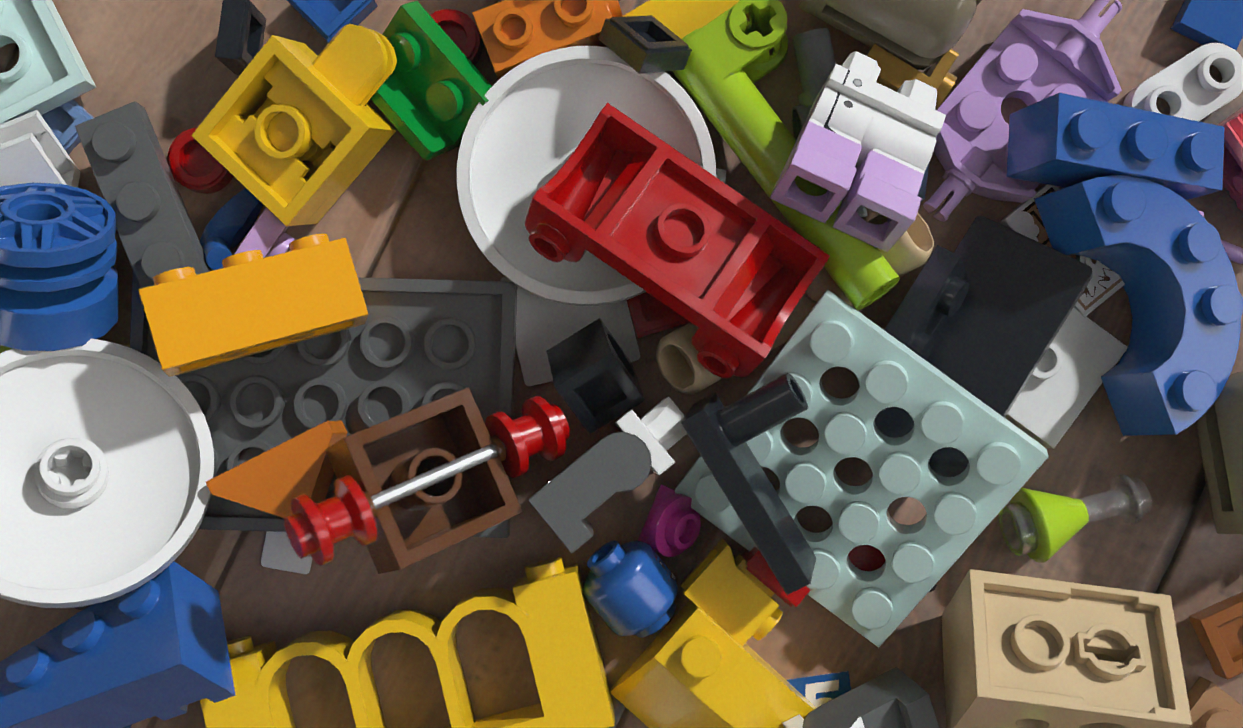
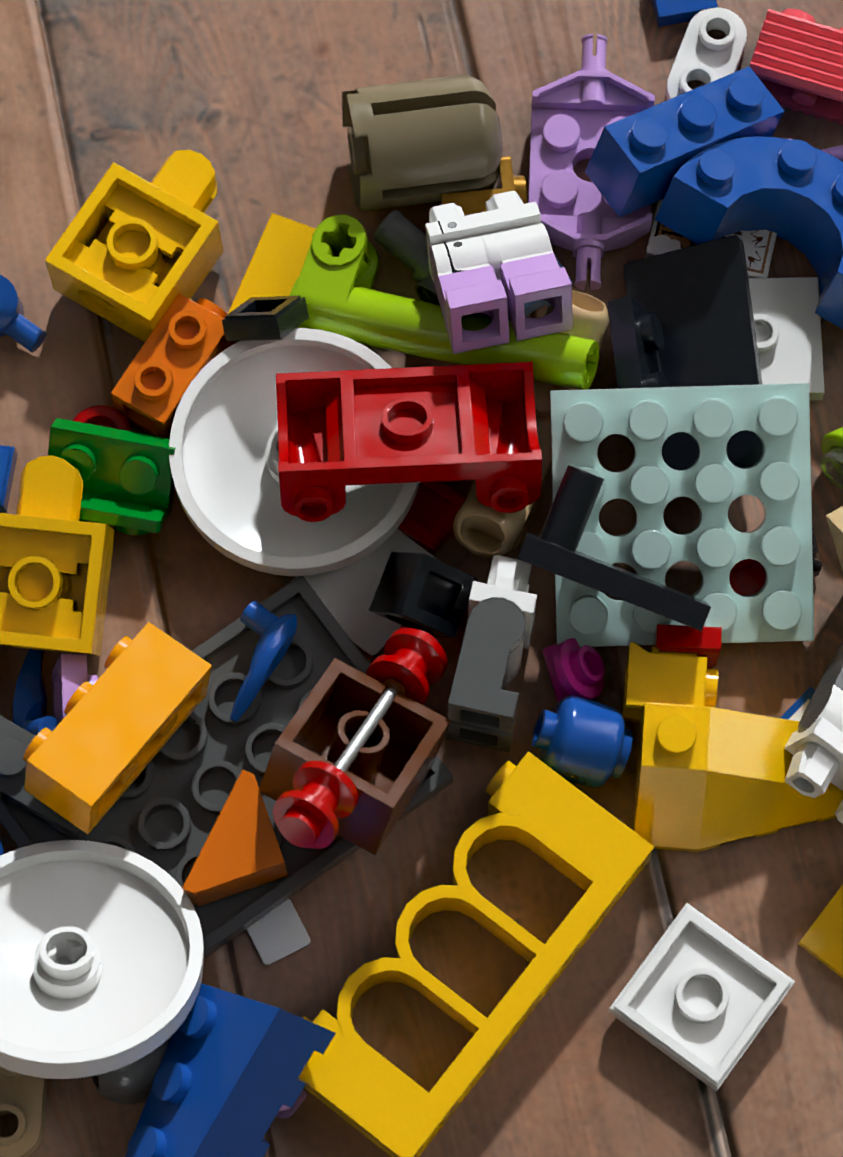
camera: 35 degrees left, 15 degrees down
(436, 329) = (274, 642): none -> blue bar

